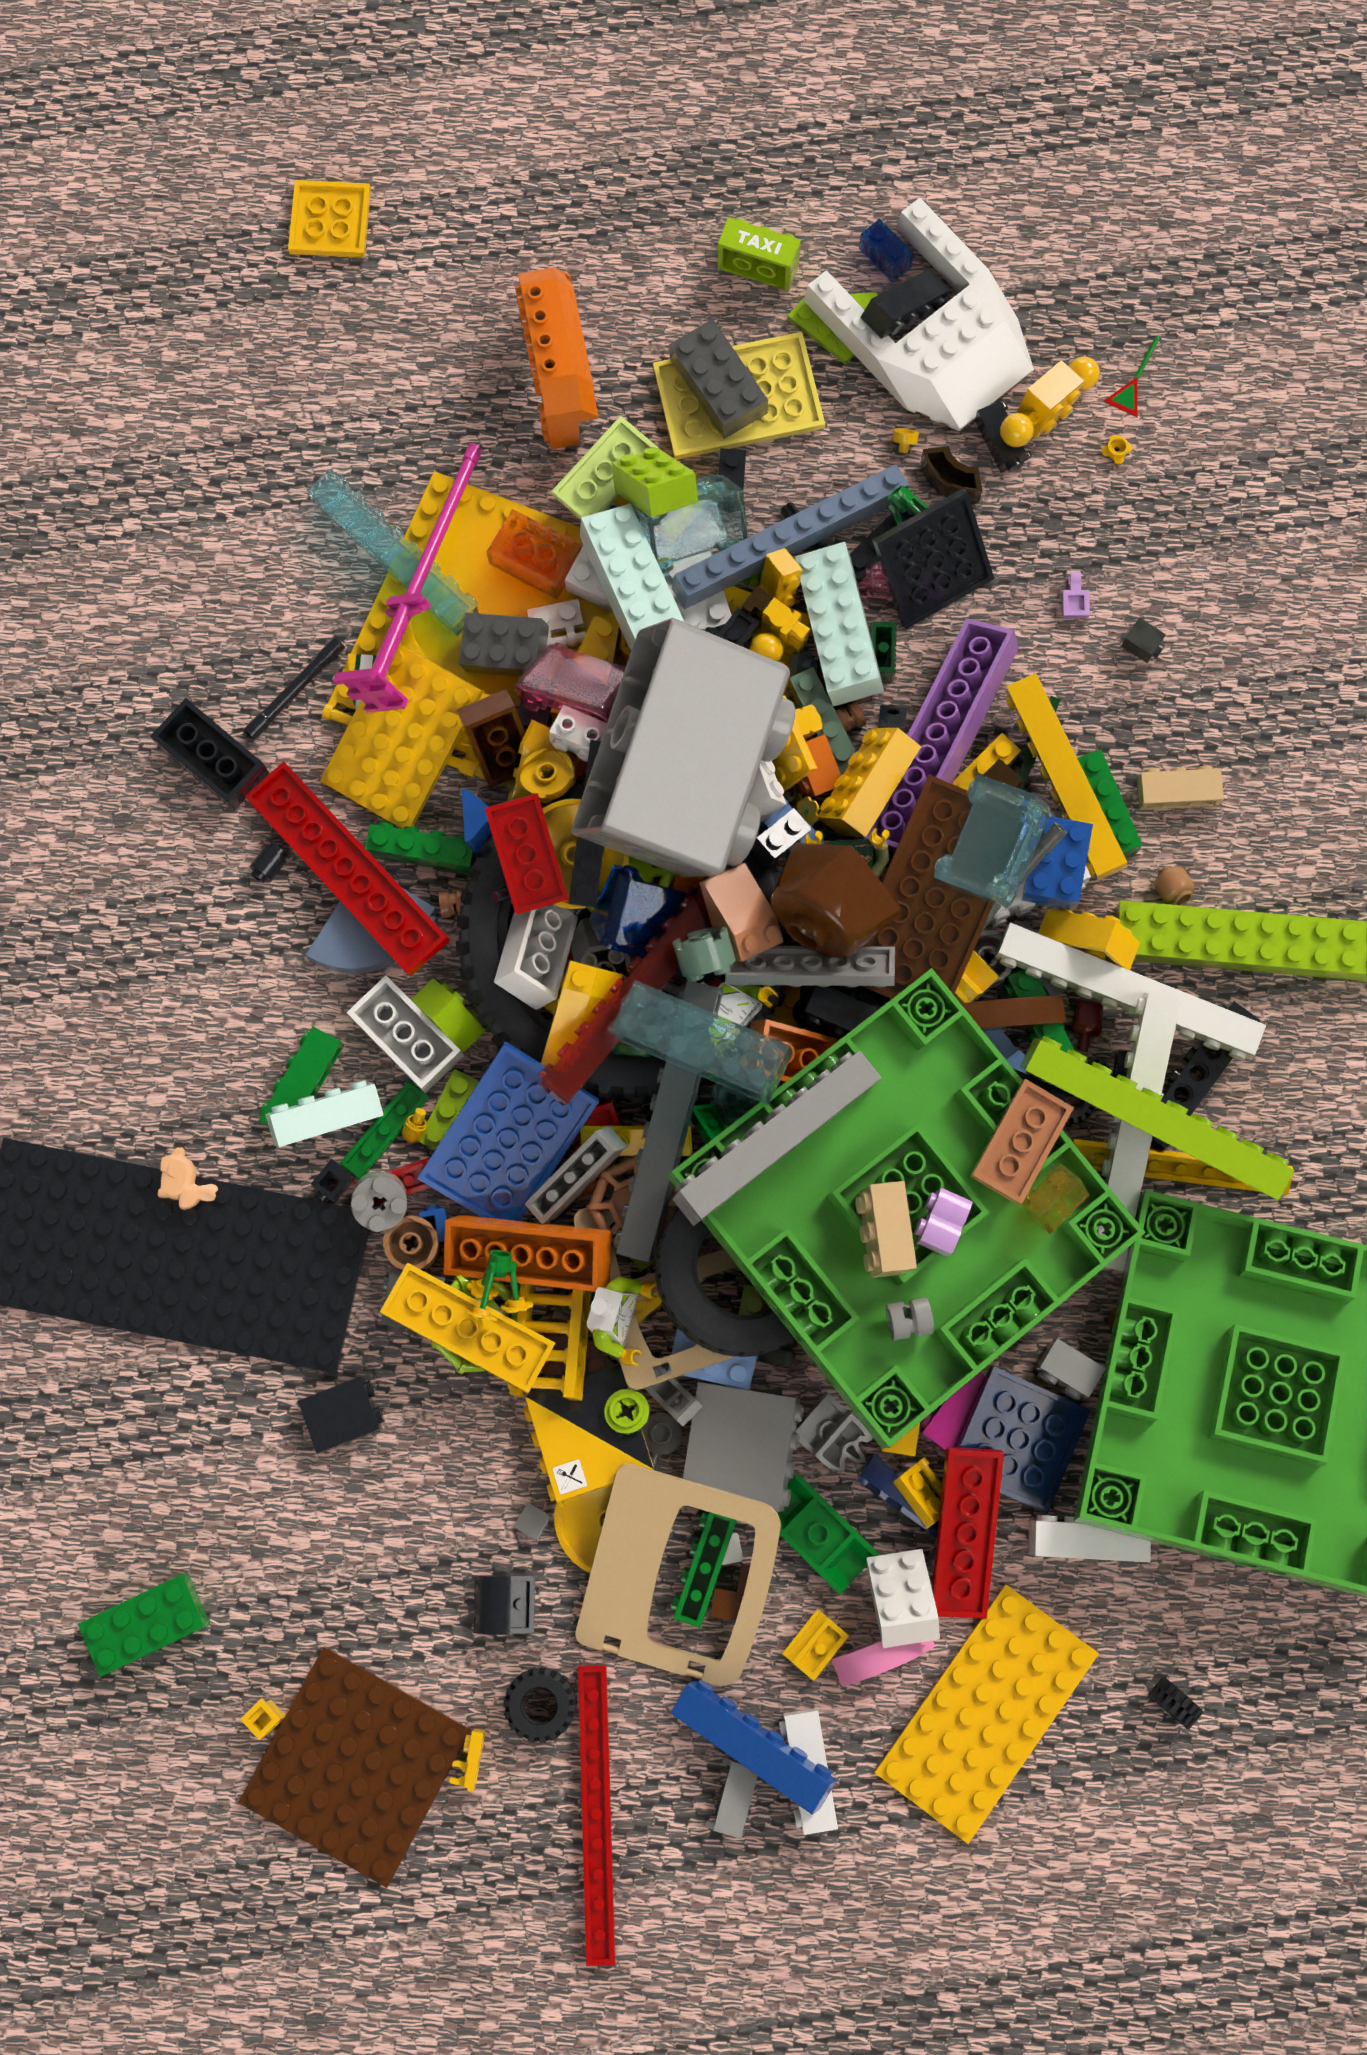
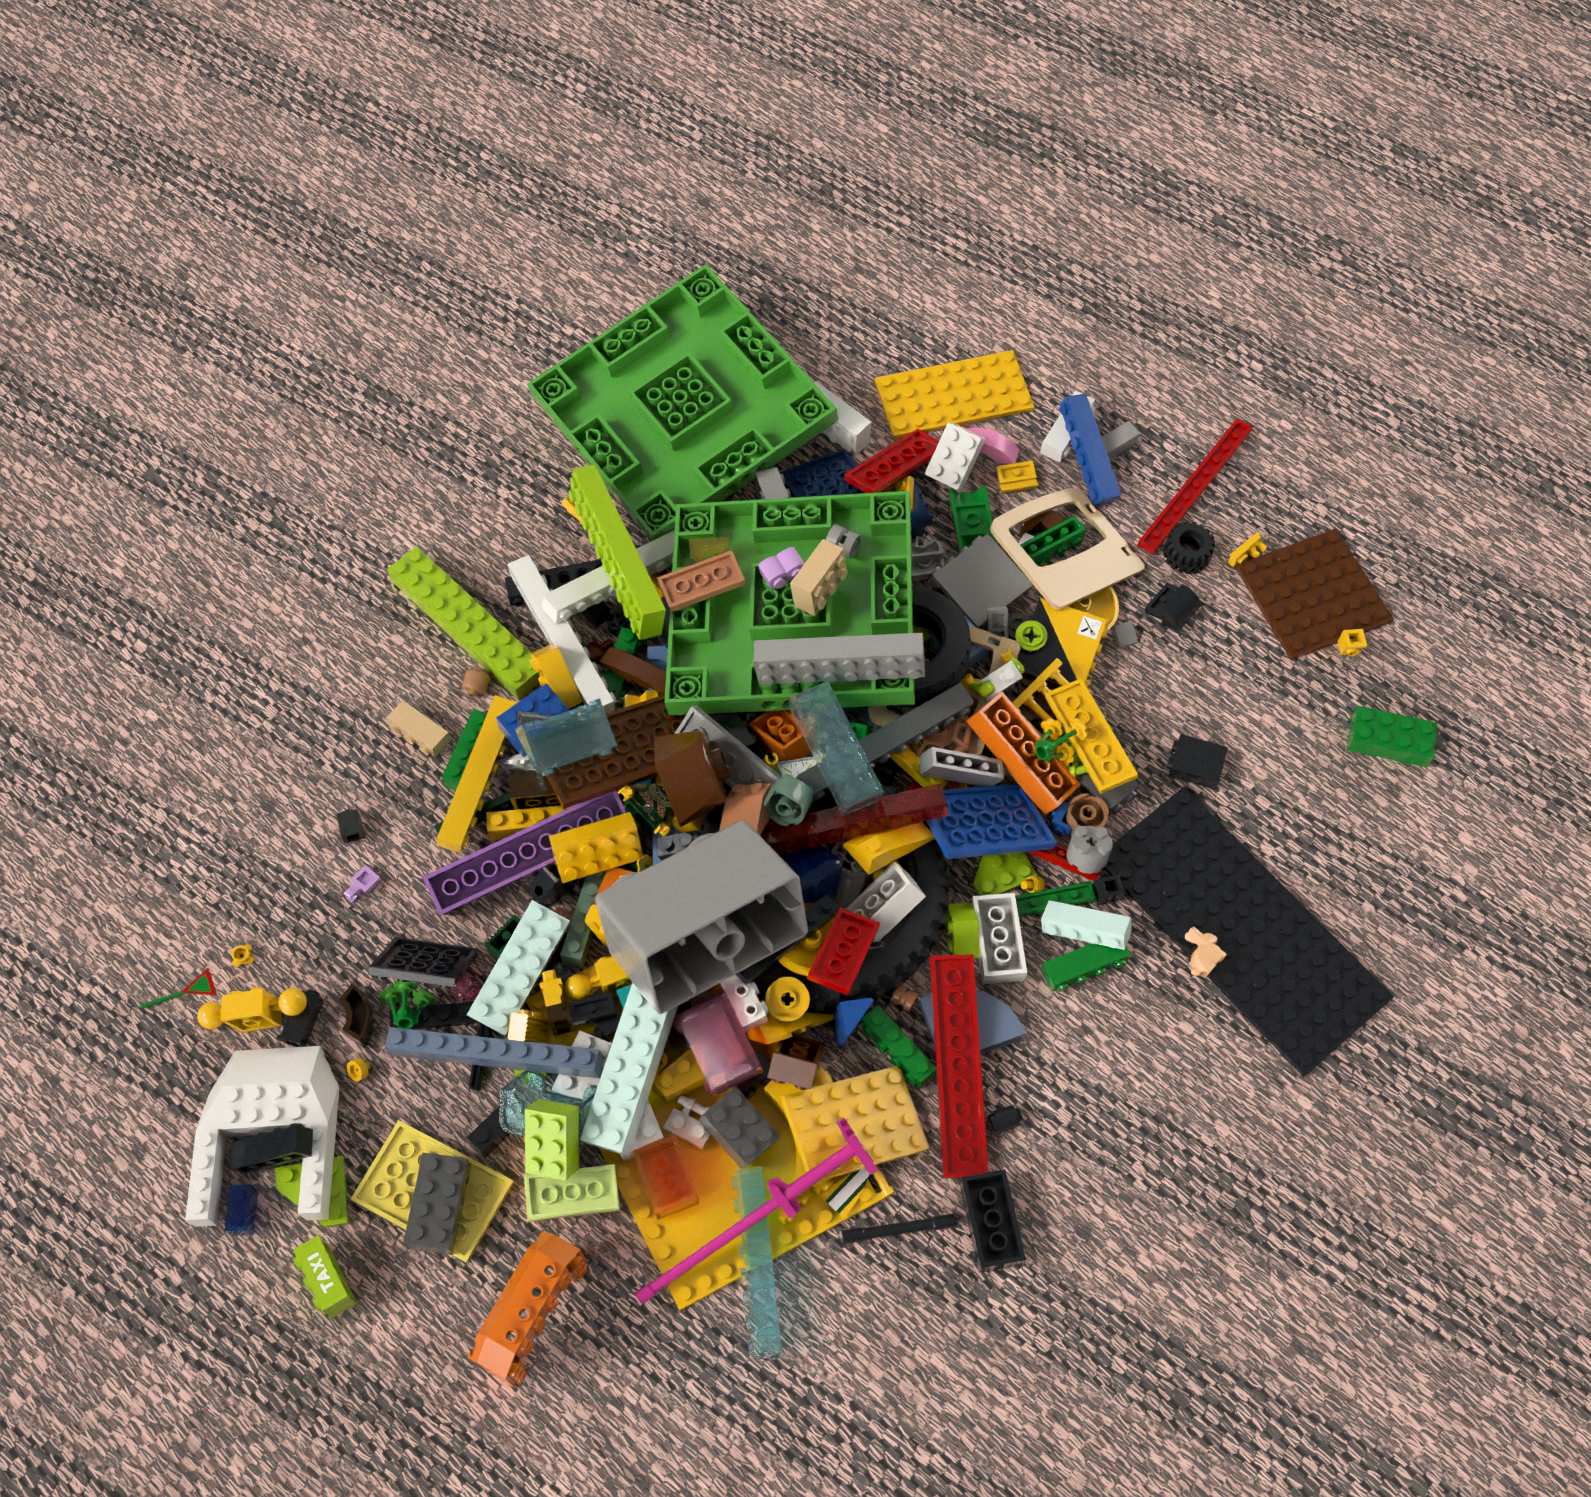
camera: 145 degrees left, 15 degrees down
(1175, 1703) = (857, 330): black tyre -> none

